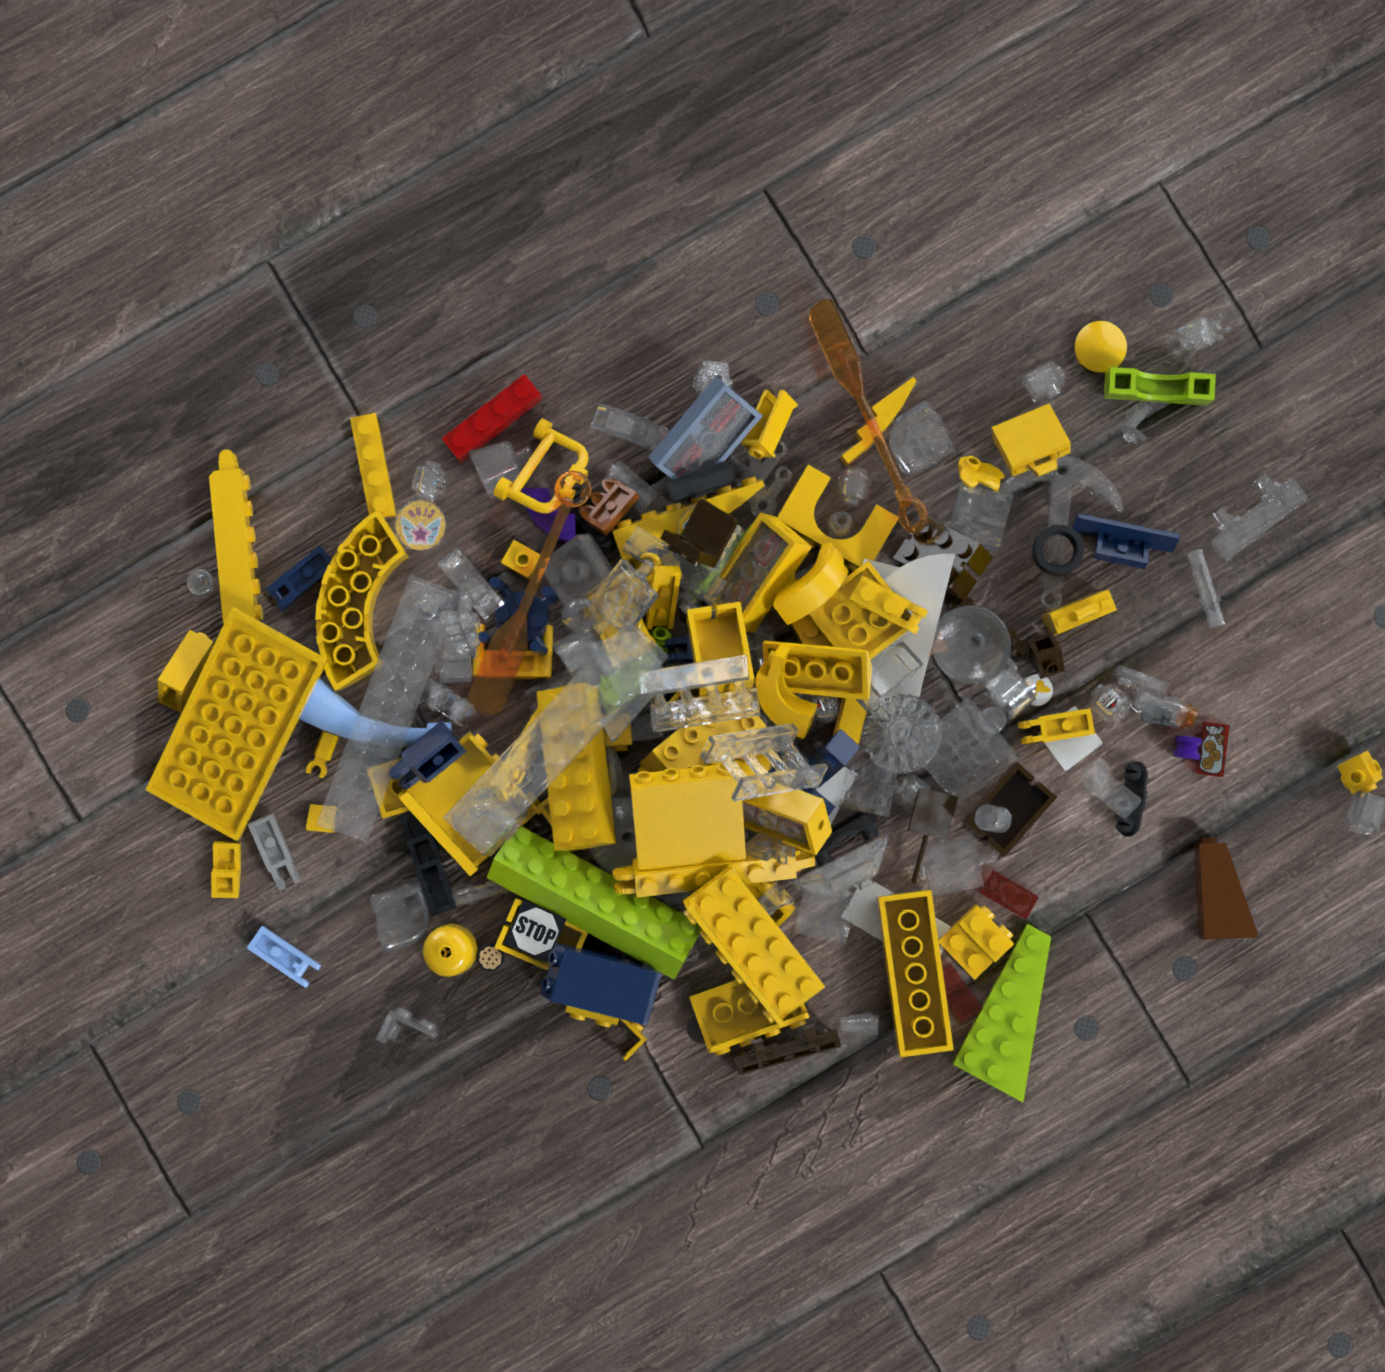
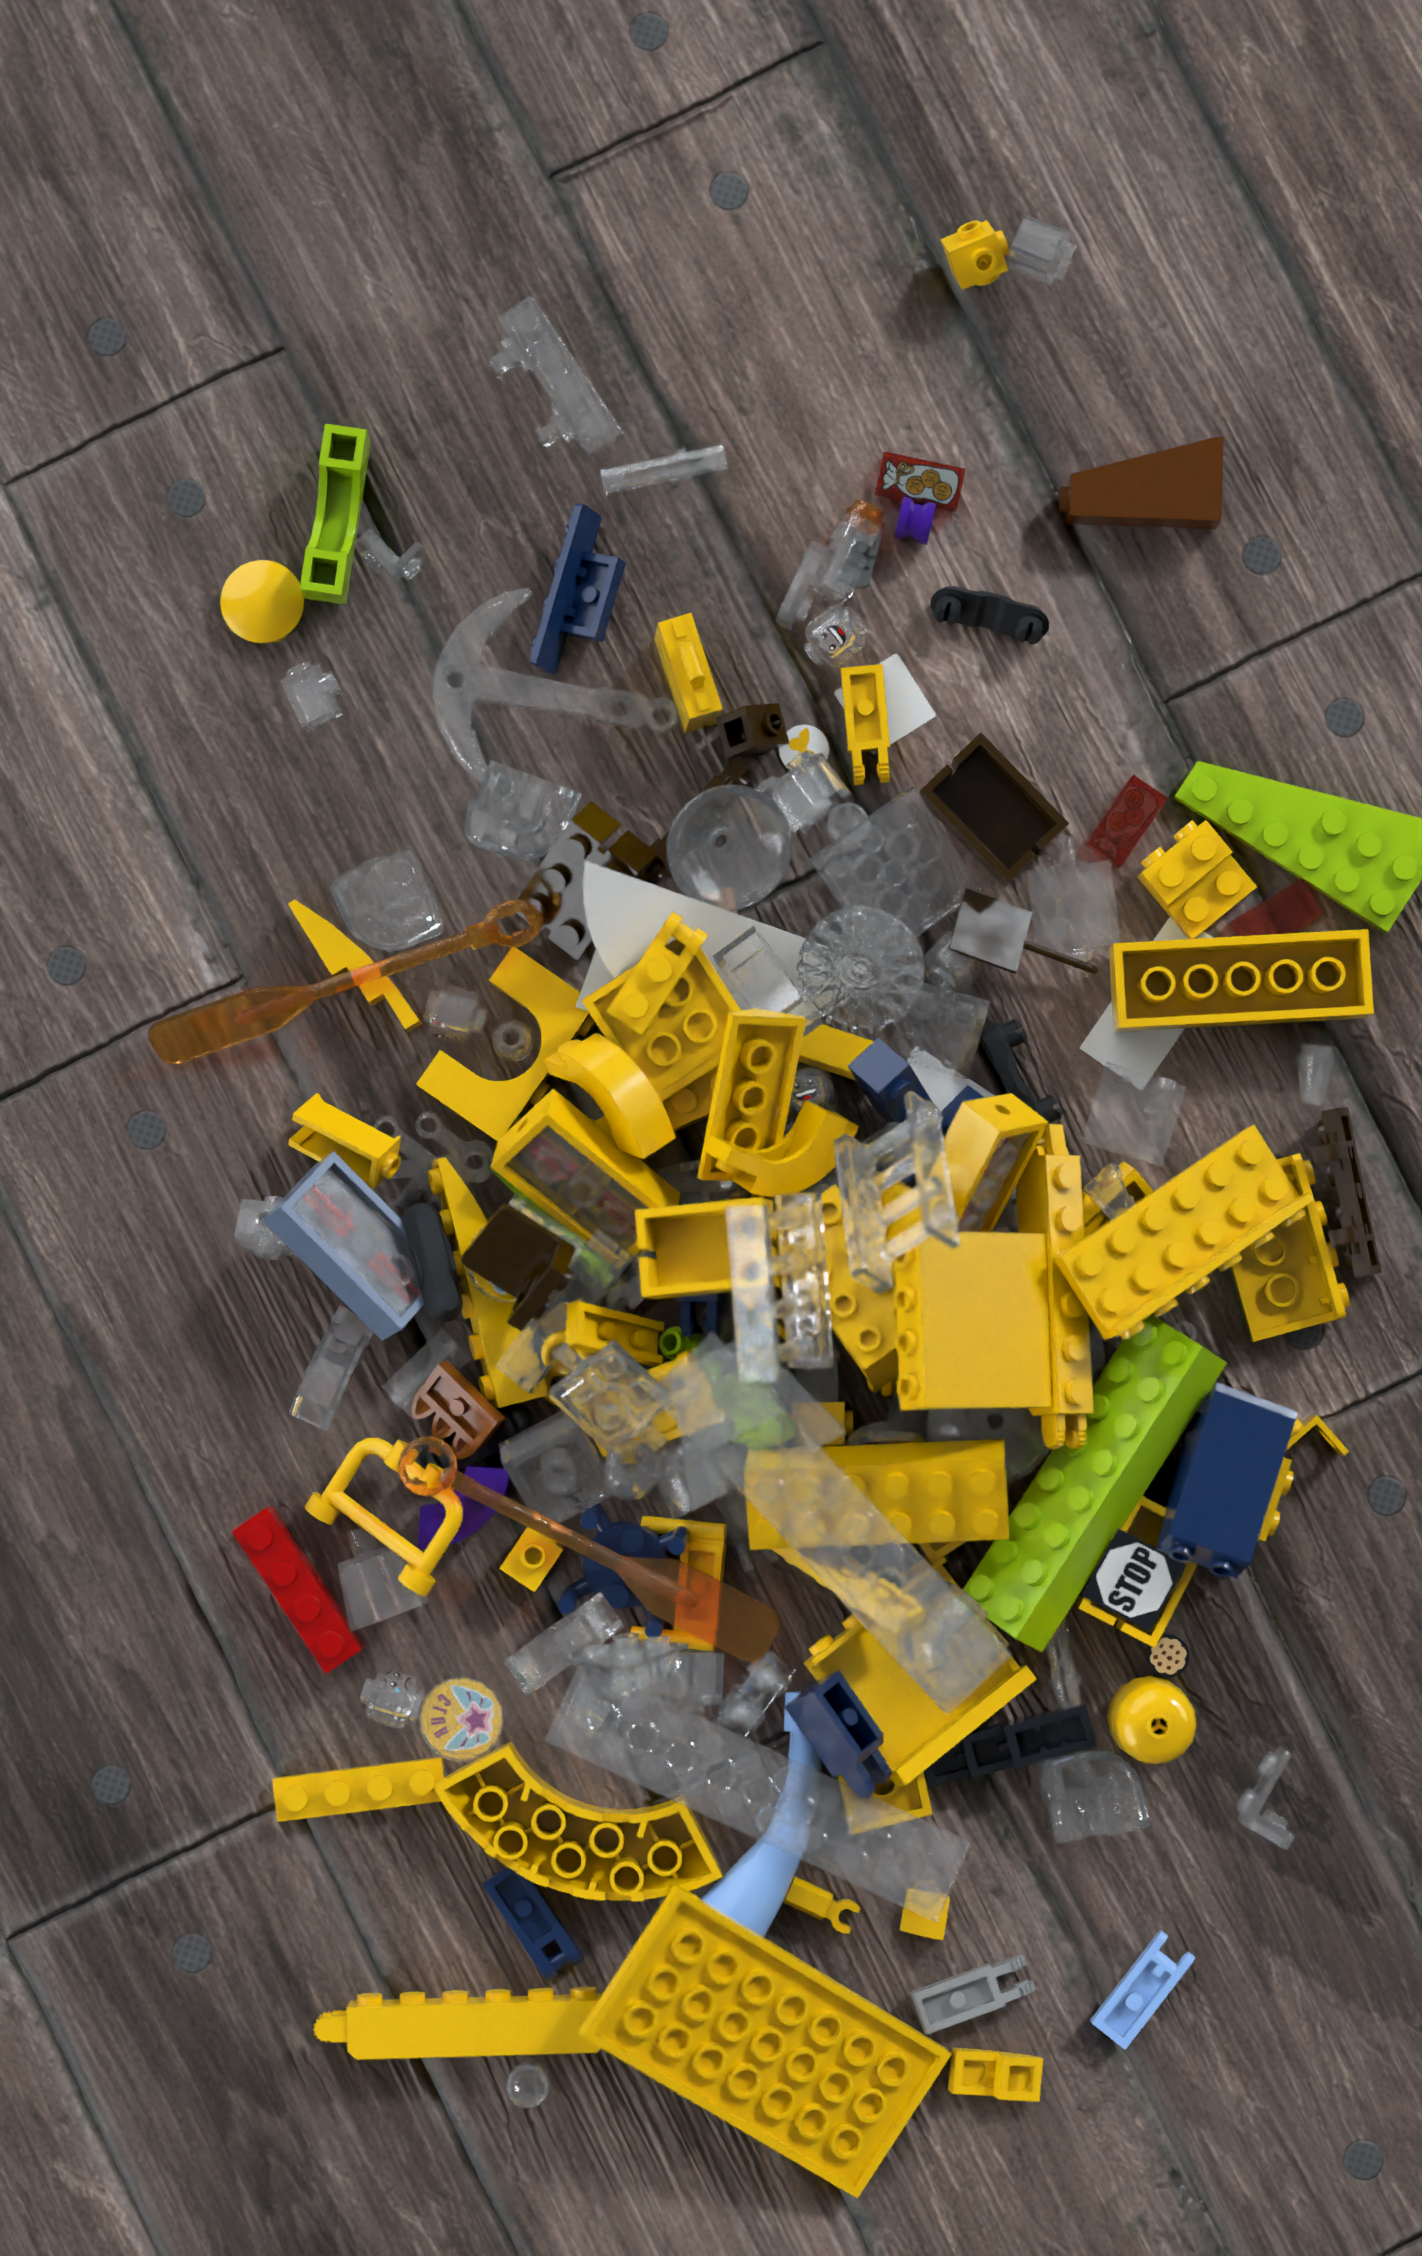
camera: 80 degrees left, 0 degrees up
(183, 670) = (669, 2120): yellow slope -> none
(767, 847) = (1028, 1199): clear plate -> none
(844, 873) = (1074, 1077): clear wedge -> none
(975, 472) = (450, 816): yellow plate -> none
(988, 814) = (1010, 845): clear wheel -> none
(1032, 441) = (408, 723): yellow piece -> none
(1069, 533) = (593, 666): black tyre -> none
(1109, 790) = (974, 648): clear bracket -> none
(1200, 333) = (256, 441): clear pin -> none

